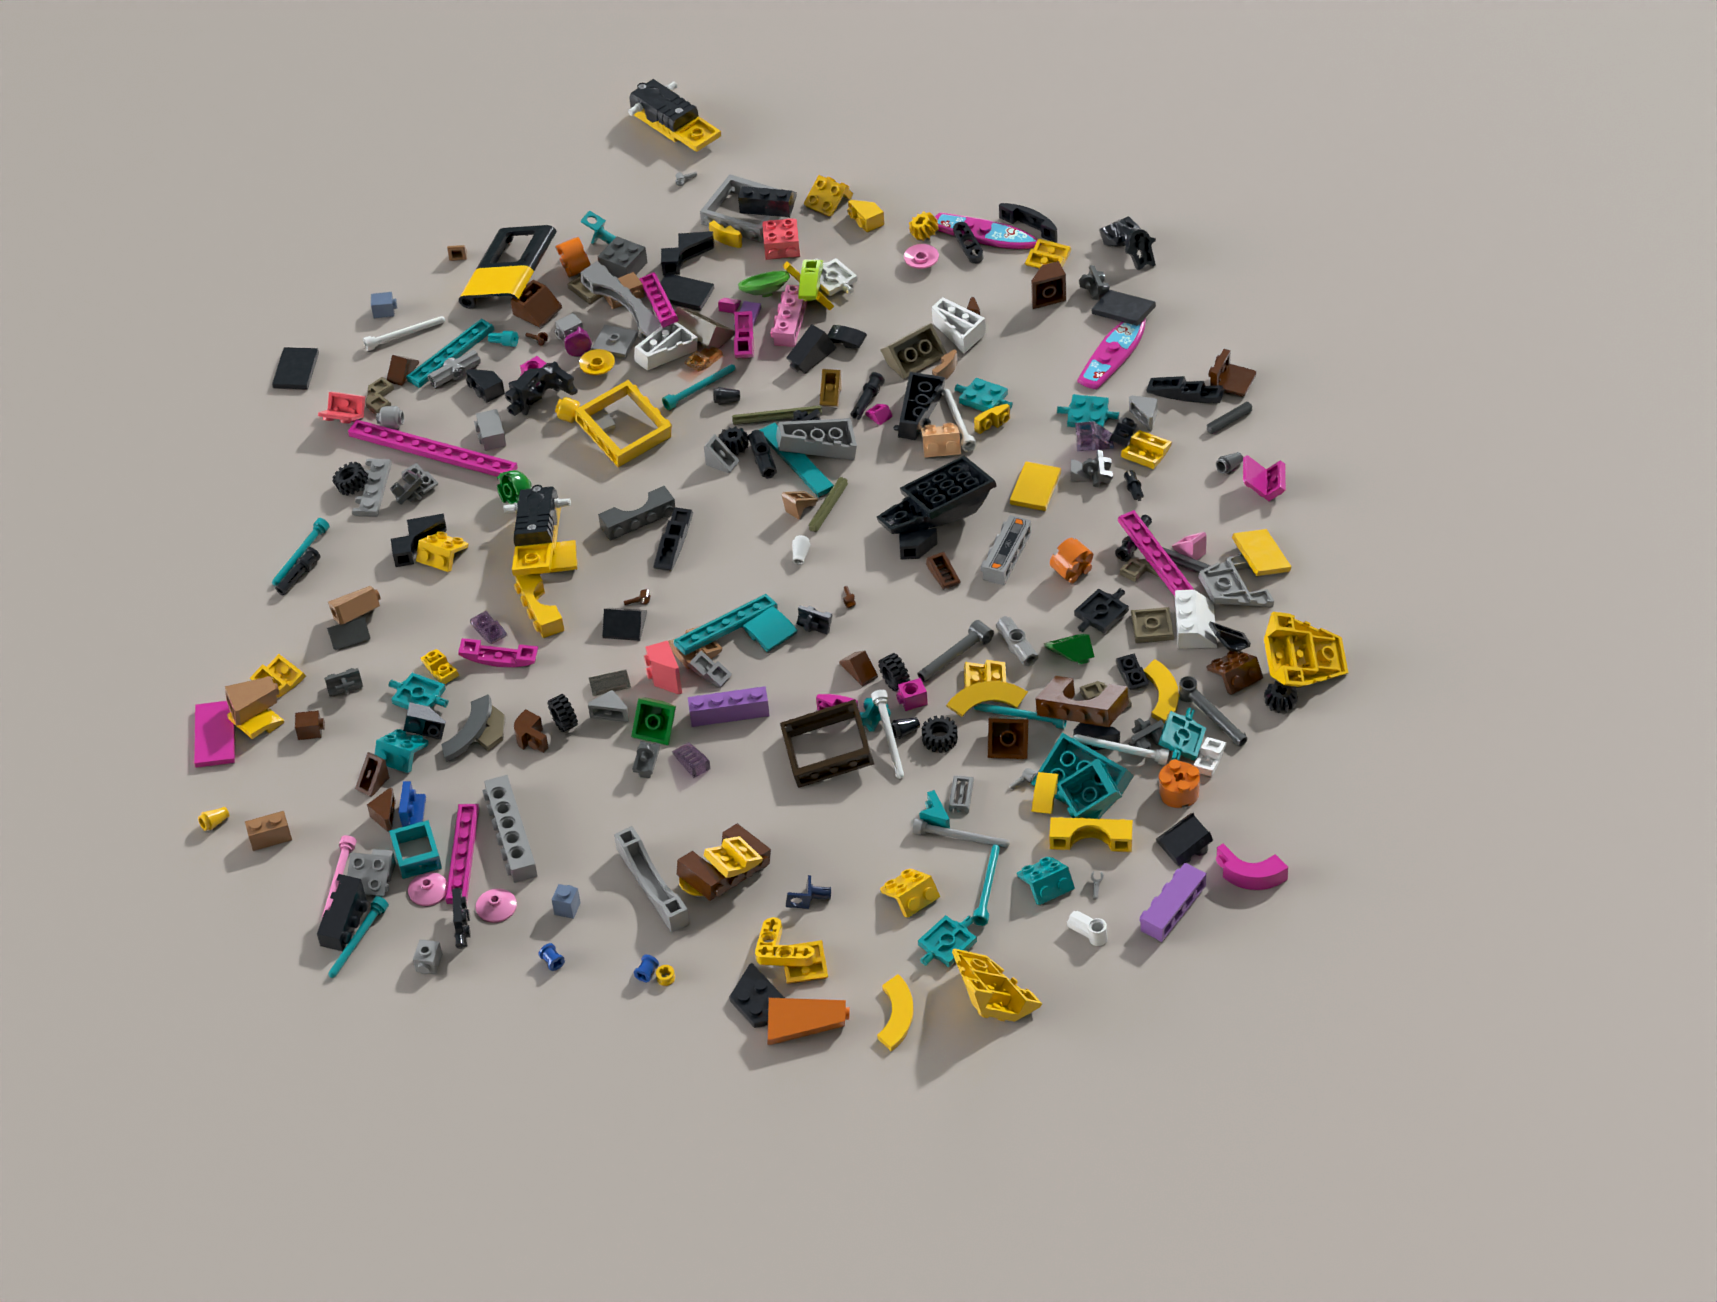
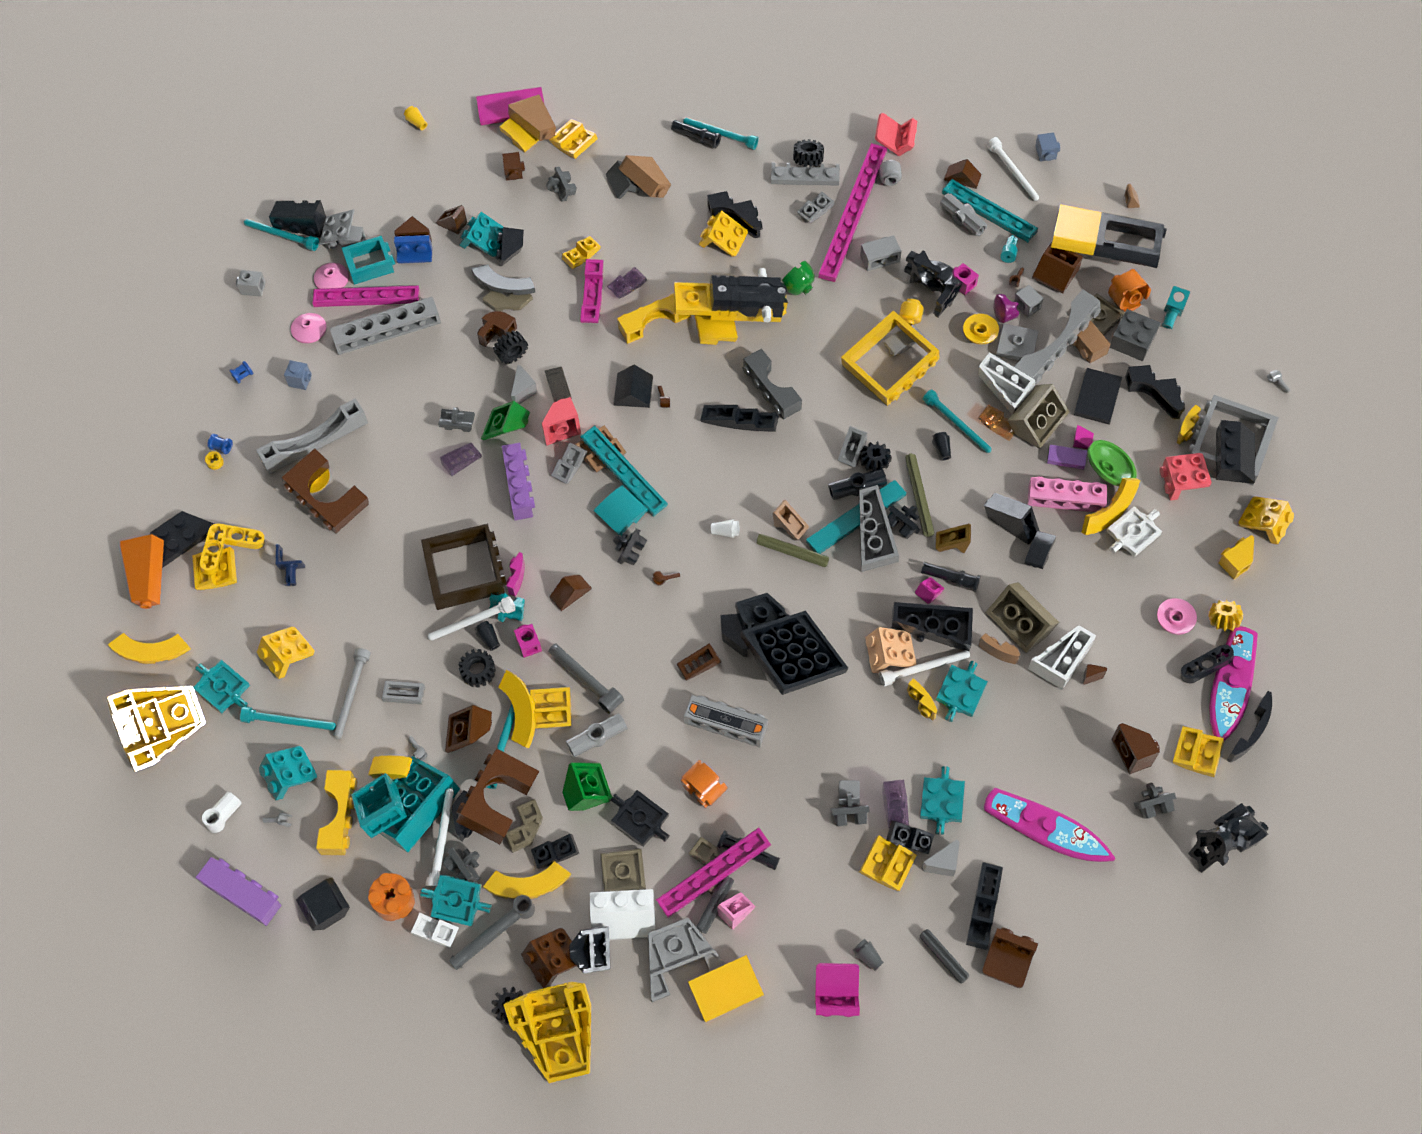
camera: 85 degrees right, 15 degrees up
(268, 830) = (395, 155): medium nougat brick -> none
(295, 368) = (958, 95): black tile -> none
(347, 845) = (378, 212): bright pink piece -> none
(376, 392) = (918, 161): dark tan tile -> none
(410, 489) = (795, 196): dark grey hips -> none
(418, 690) = (546, 240): teal plate -> none
(460, 918) = (281, 297): black plate -> none
(485, 383) = (941, 242): black slope -> none
(659, 300) = (1068, 369): dark pink tile -> none
(671, 115) = (1368, 355): piece -> none
(733, 857) = (316, 493): yellow slope -> none
(744, 335) = (1021, 456): dark pink arch -> none
(810, 279) = (1109, 500): lime slope -> none
(893, 671) = (550, 619): black tyre -> none
(935, 812) = (372, 671): teal slope -> none
(1035, 486) = (826, 748): yellow tile -> none
(1123, 307) = (1115, 834): black tile -> none
(1134, 485) = (827, 849): black axle -> none
(1251, 875) = (269, 966): dark pink arch -> none

